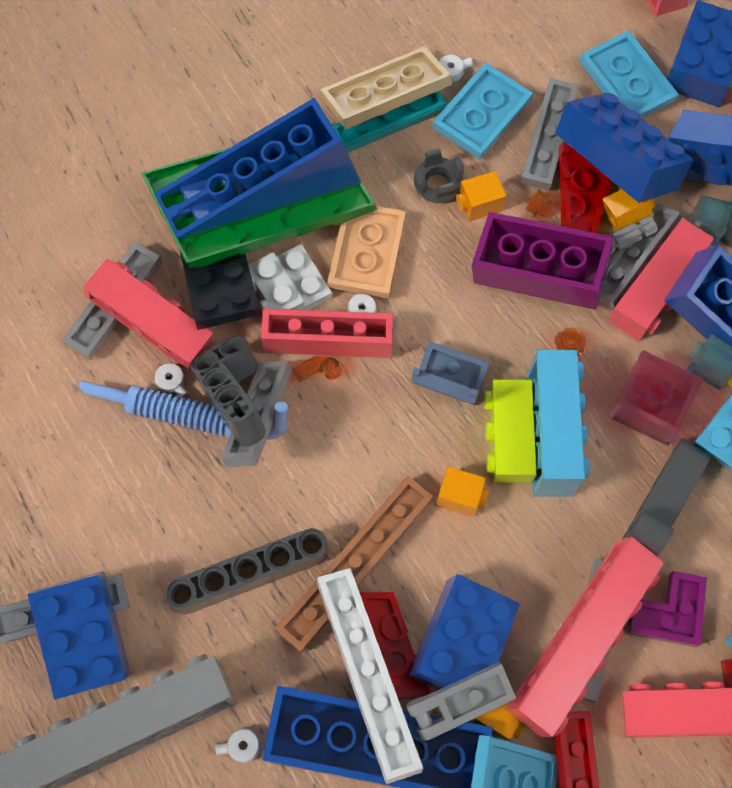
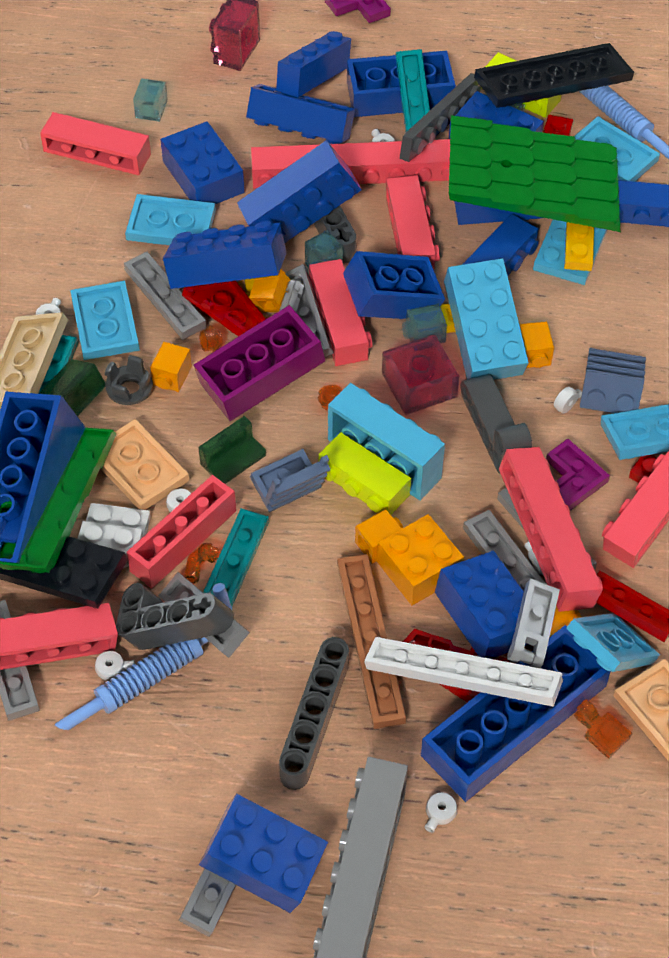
camera: 50 degrees left, 15 degrees down
(343, 394) = (238, 553): none -> teal tile
(393, 143) = (77, 383): none -> clear green panel
(443, 308) = (231, 451): none -> clear green panel
(465, 542) = (416, 556): none -> light orange brick
(532, 618) = (489, 536): none -> light grey plate

